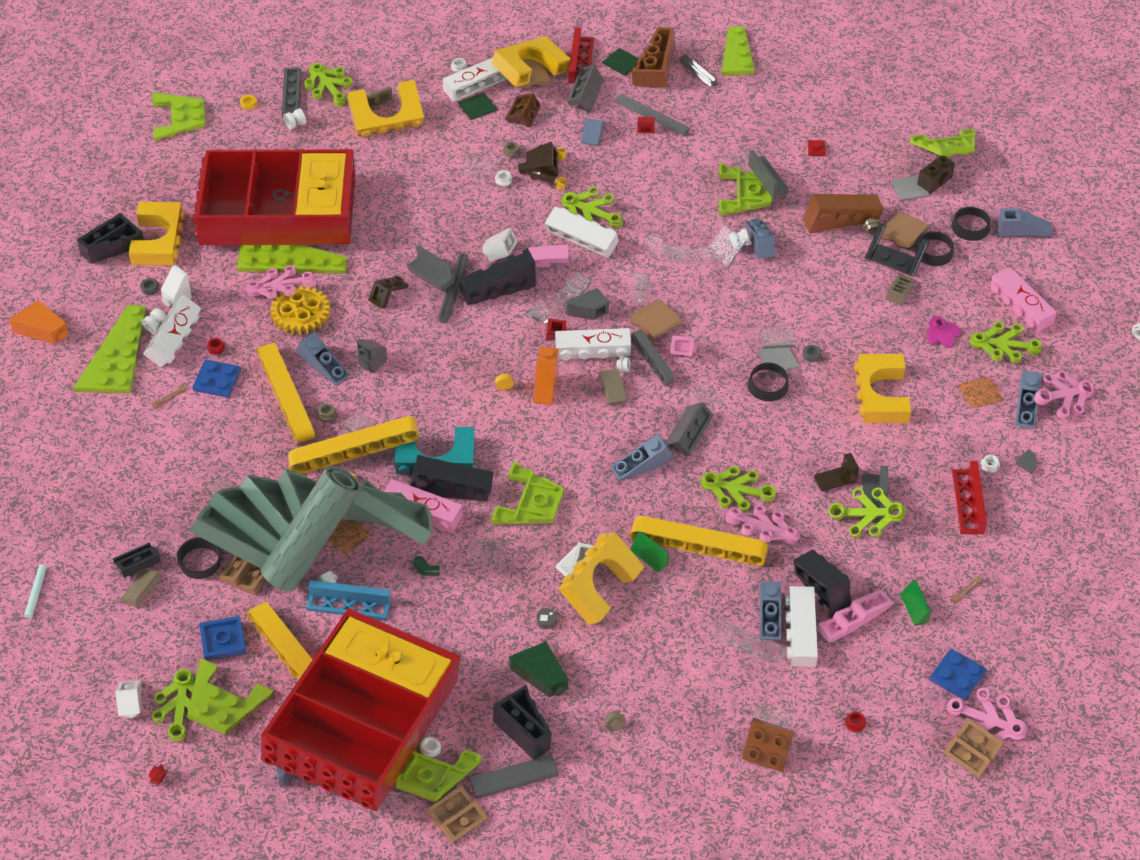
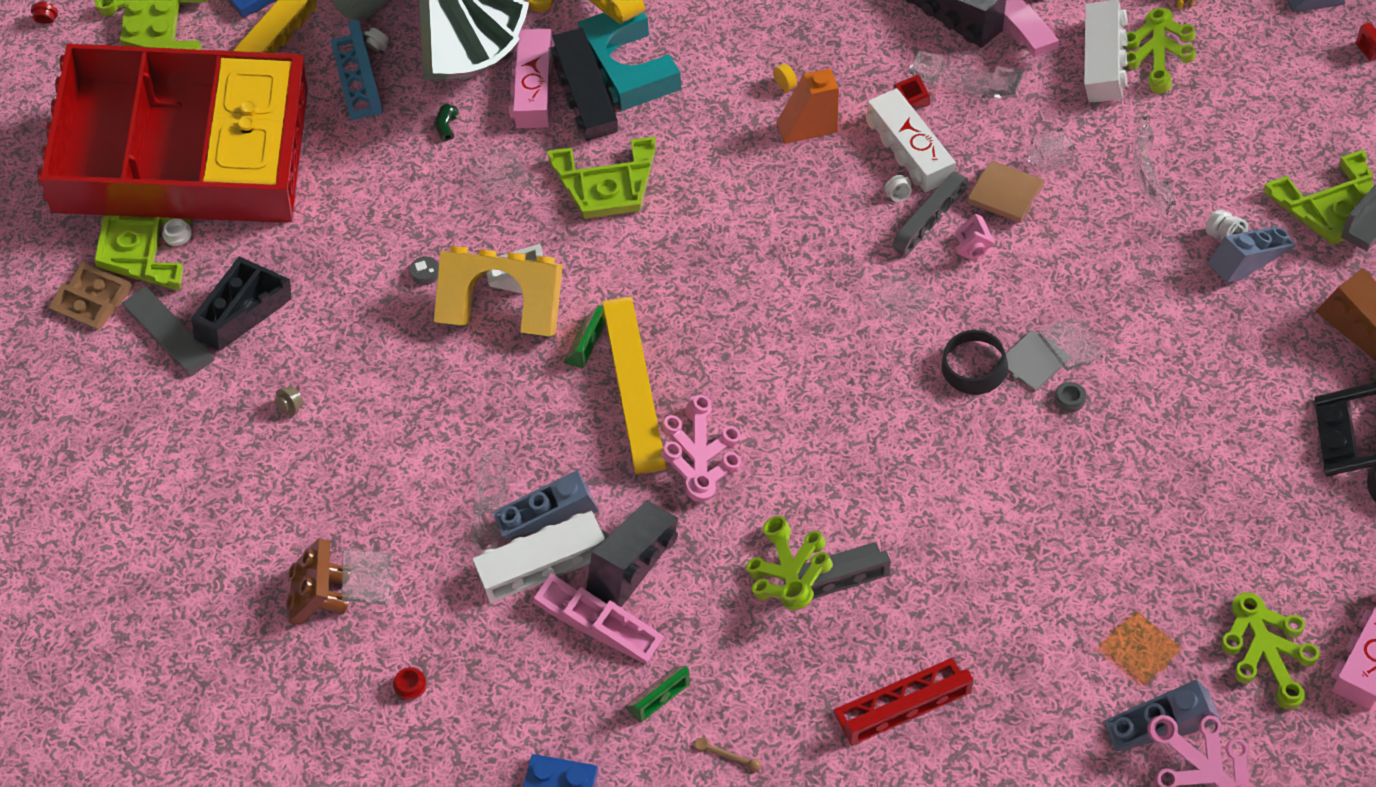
camera: 70 degrees right, 5 degrees up
(540, 669) = (335, 293): dark green slope -> none
(588, 305) = (978, 109): dark grey slope -> none
(613, 386) = (847, 189): dark tan slope -> none
(646, 457) = (744, 270): sand blue slope -> none
(690, 428) = (828, 303): dark grey panel -> none
(727, 245) = (1198, 215): clear piece -> none
(736, 487) = (756, 392): lime plant -> none
(840, 476) = (844, 508): dark brown bracket -> none
(873, 406) = (1076, 476): yellow arch -> none
(899, 295) = (1272, 473): dark tan slope -> none
(944, 334) = (1229, 555): dark pink plate -> none
(990, 459) = (996, 699): white plate -> none
(1027, 461) = (1035, 761): dark grey tile -> none

